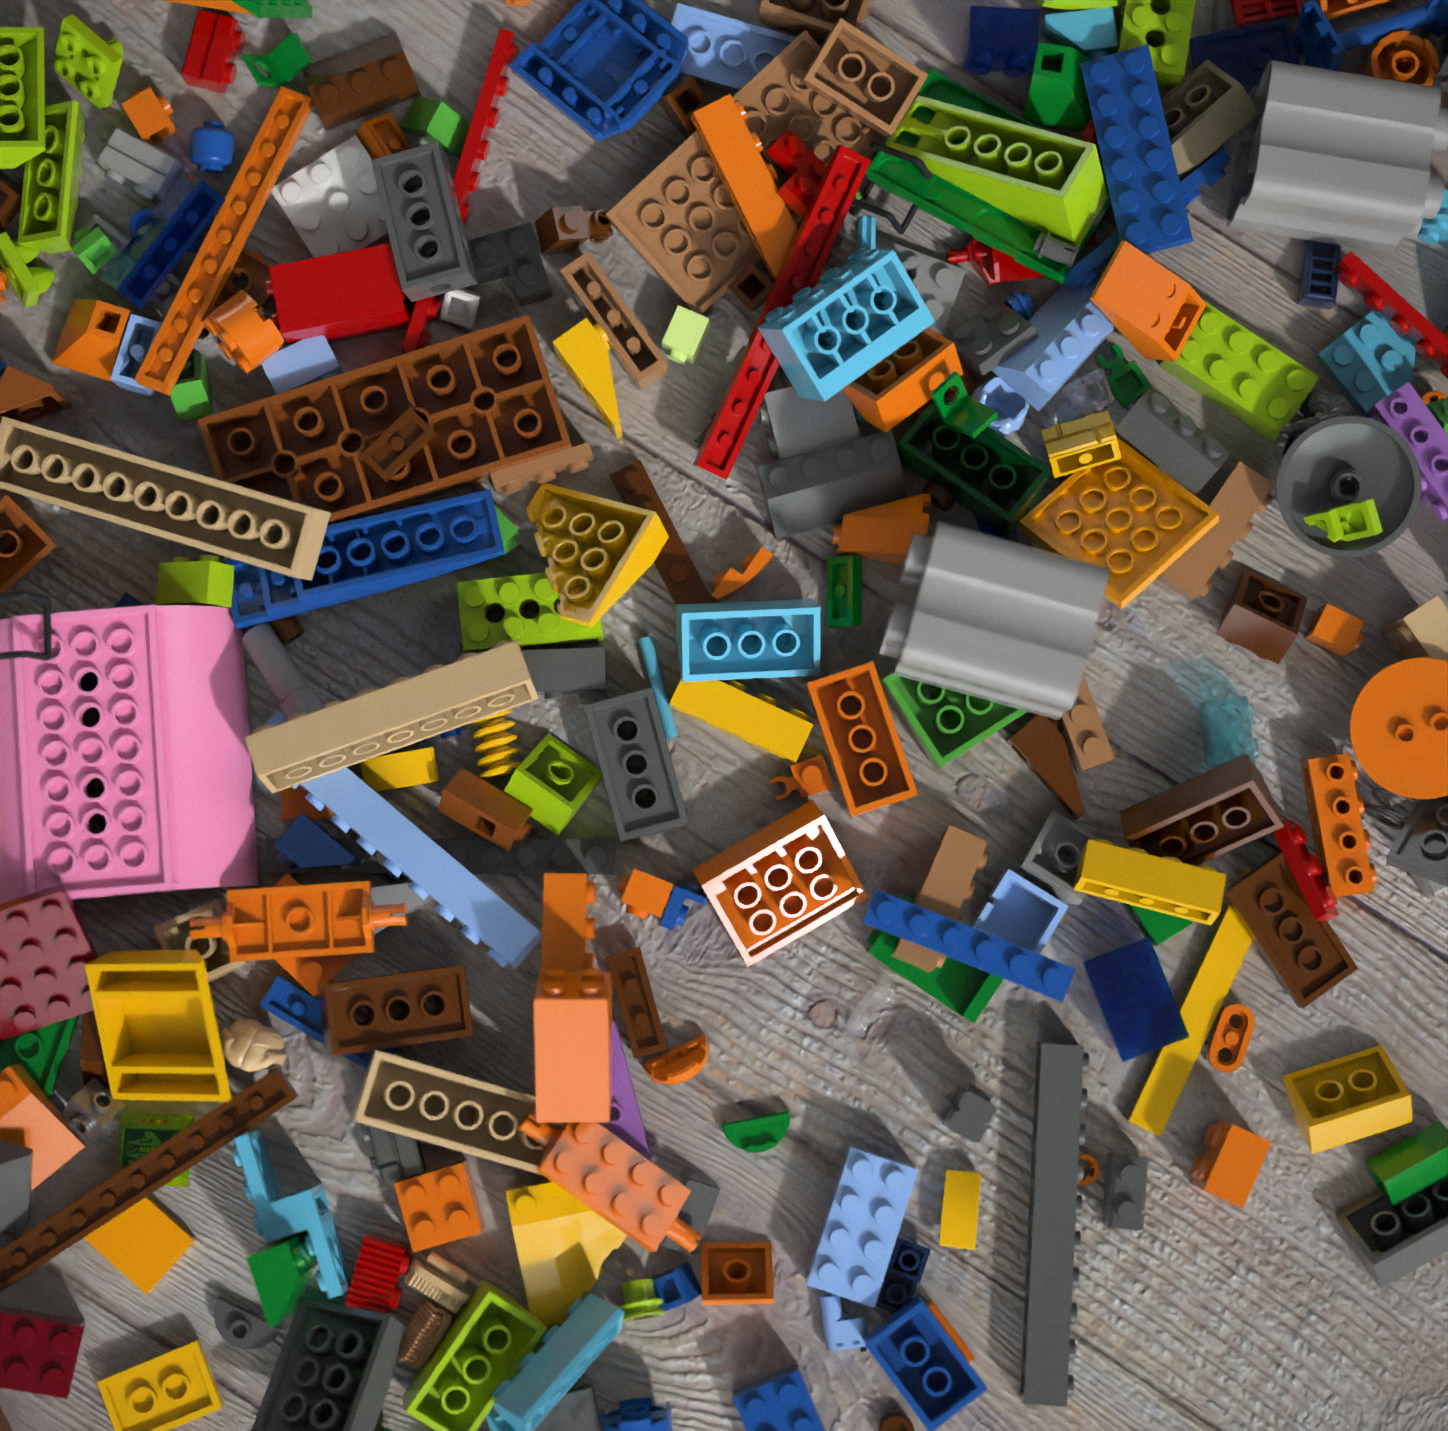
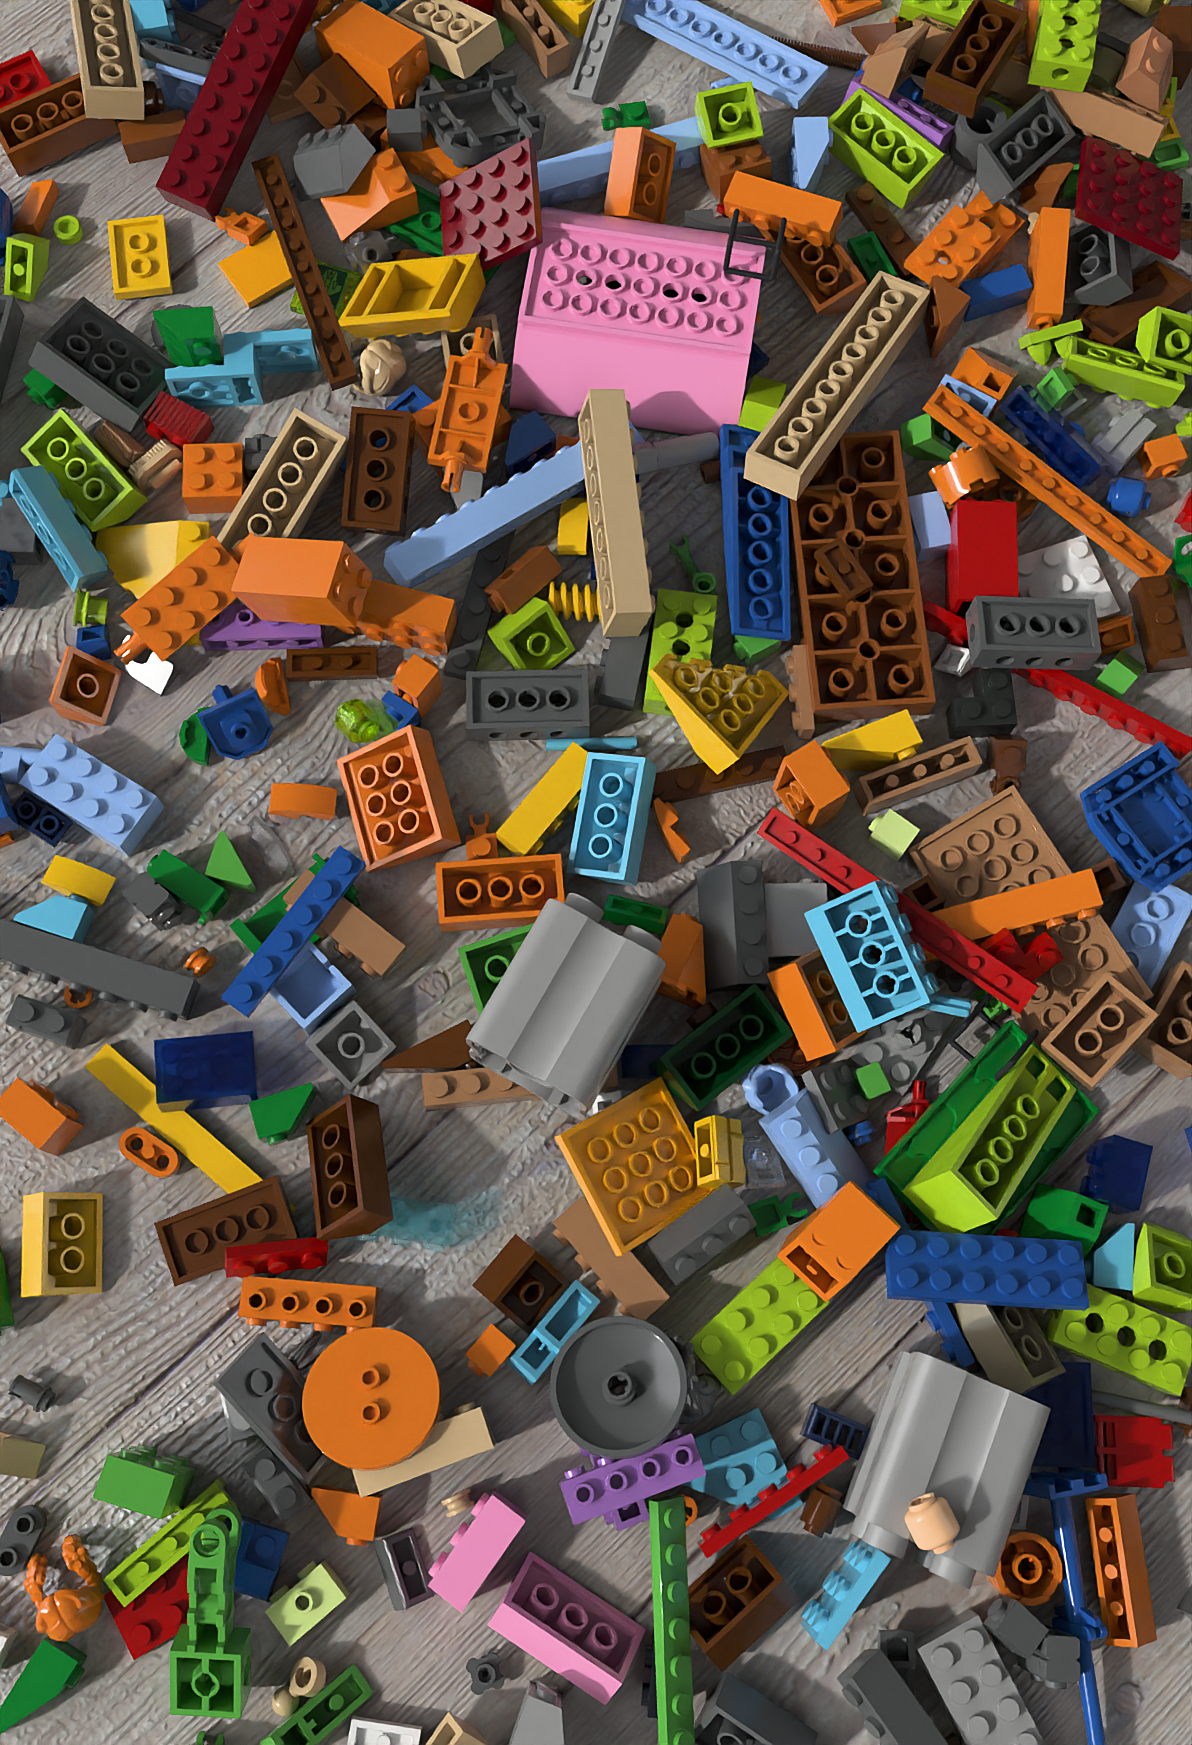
camera: 100 degrees right, 10 degrees down
(89, 1277) = (243, 228): none -> orange plate
(434, 611) = (701, 582): none -> bright green brick
(665, 427) = (811, 786): none -> orange brick
(700, 953) = (357, 721): none -> clear neon green head
(740, 1086) = (236, 723): none -> blue piece
(807, 988) = (298, 799): none -> orange slope
(905, 1047) = (227, 868): none -> bright green slope
(936, 1088) = (188, 885): none -> green brick
(963, 411) = (770, 1046): green bracket -> none
(964, 305) = (871, 1081): none -> bright green slope
(1009, 1214) = (60, 917): none -> medium azure slope
(1016, 1046) = (200, 962): none -> orange bush
(1055, 249) = (905, 1168): dark grey pin -> none
(1150, 881) = (304, 1106): yellow brick -> none
(1300, 571) = (553, 1332): none -> medium azure slope
(1348, 521) = (584, 1375): lime slope -> none
(1399, 270) = (822, 1510): none -> reddish brown brick
(1412, 151) = (932, 1523): none -> light nougat head

